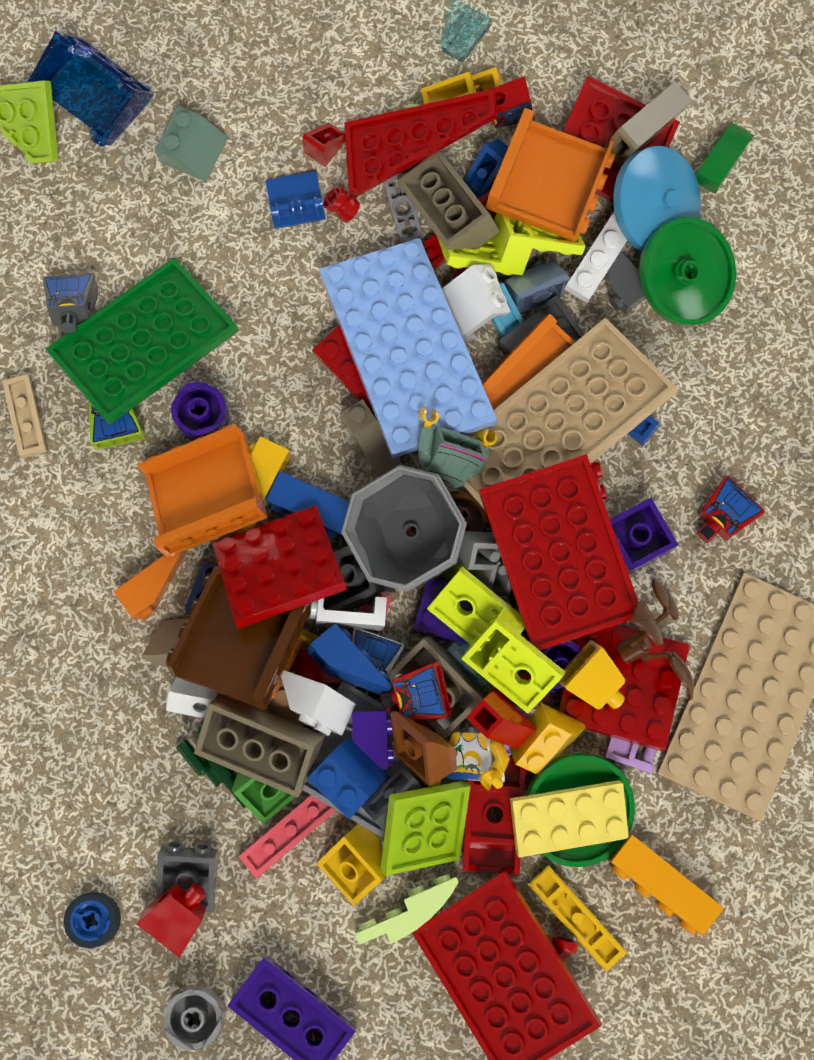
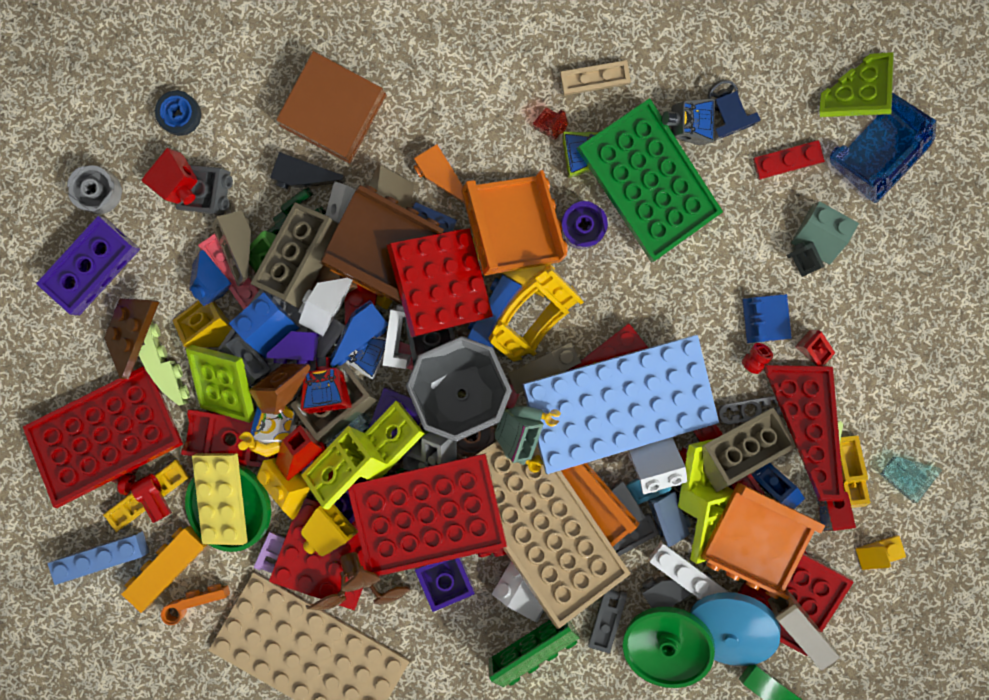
camera: 90 degrees right, 10 degrees up
(54, 257) = (730, 110): none -> dark blue piece
(75, 724) = (331, 107): none -> dark orange container
(81, 460) = (551, 123): none -> clear red bracket
(110, 191) = (788, 160): none -> red plate
(159, 759) = (299, 174): none -> black slope
(222, 161) = (806, 258): none -> pearl dark grey bracket
(249, 829) = (234, 235): none -> dark tan slope
(288, 429) = (561, 297): none -> yellow wedge
(297, 862) = (207, 280): none -> blue slope
(371, 955) = (128, 332): none -> reddish brown wing
(553, 53) = (880, 553): none -> yellow slope
(572, 910) = (149, 494): none -> red piece
(642, 446) = (517, 595): none -> white slope
(661, 972) = (98, 558): none -> medium blue brick
(667, 346) = (607, 621): none -> dark grey plate
(699, 845) = (193, 598): none -> orange plate
(710, 427) = (530, 651): none -> green slope
(727, 511) = (460, 655): torso -> none

